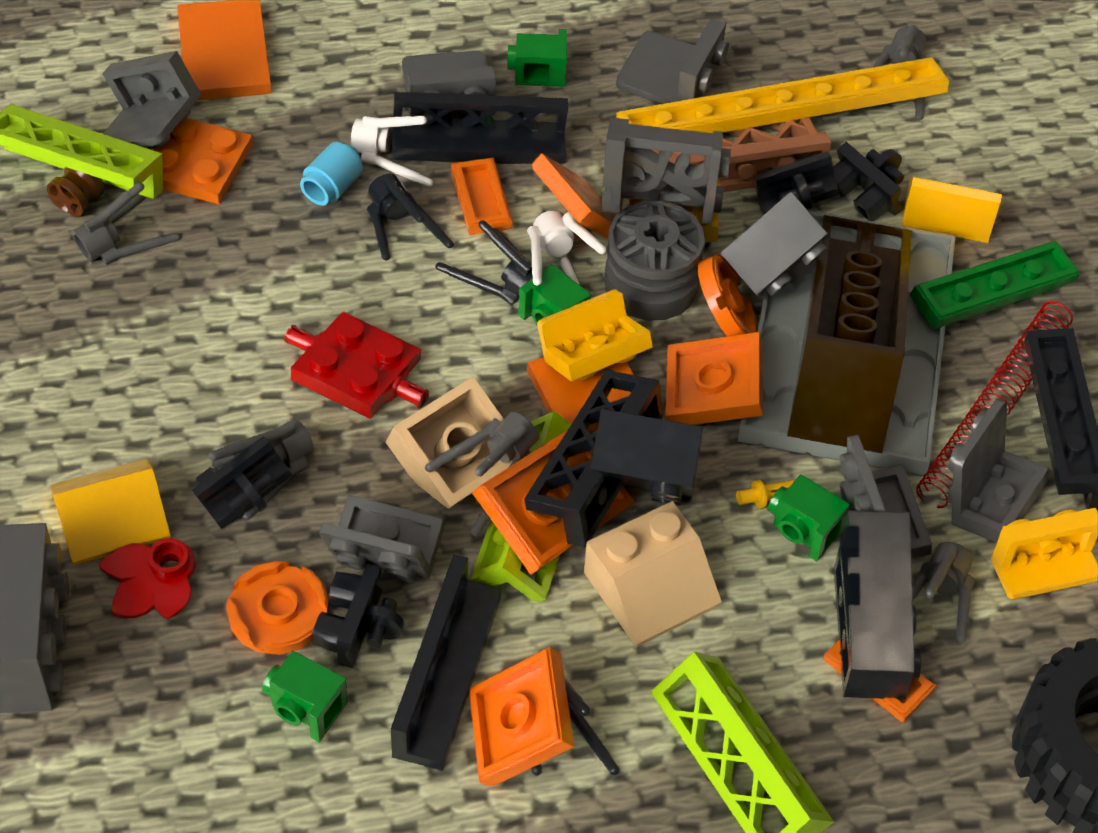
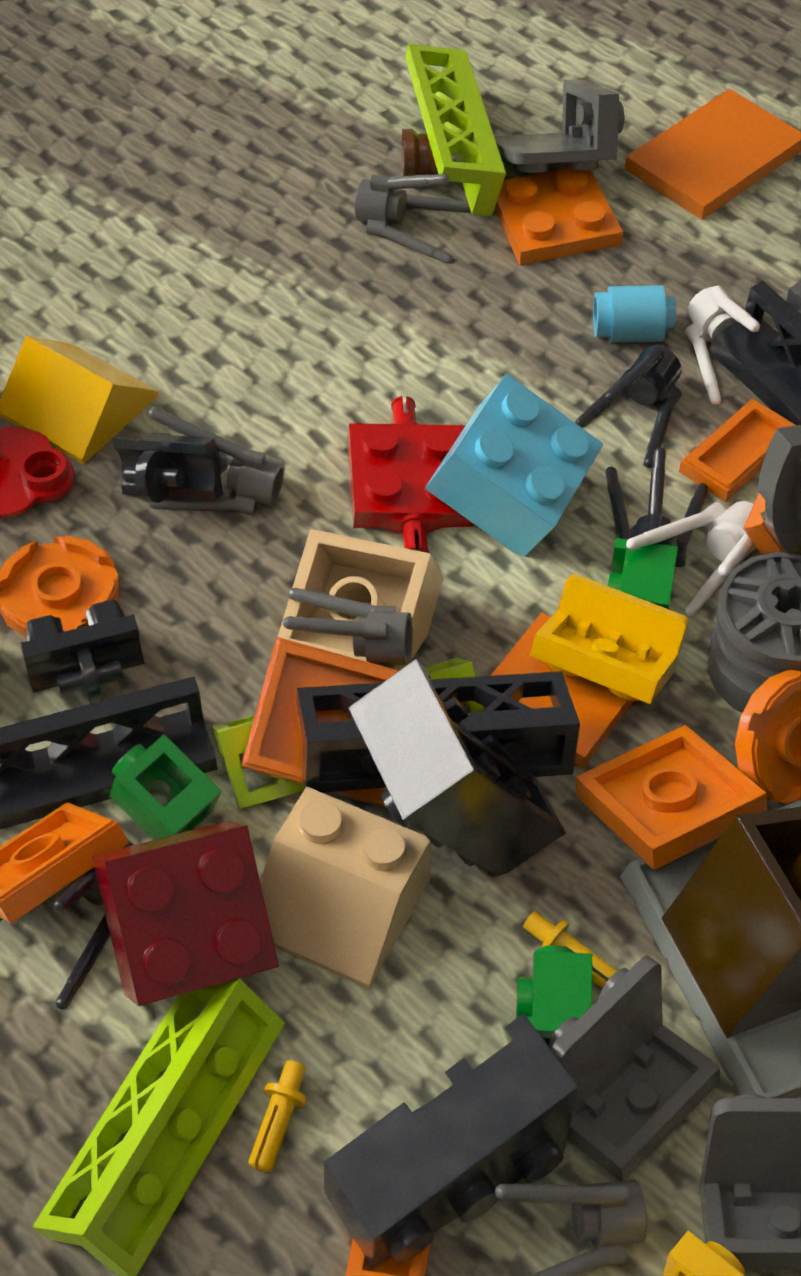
camera: 60 degrees right, 0 degrees up
(386, 538) = (186, 620): dark grey bracket -> none
(417, 301) = (515, 466): none -> medium azure brick
(517, 624) = (170, 771): none -> green brick
(630, 652) = (185, 912): none -> dark red brick
(778, 694) = (283, 1100): none -> yellow piece

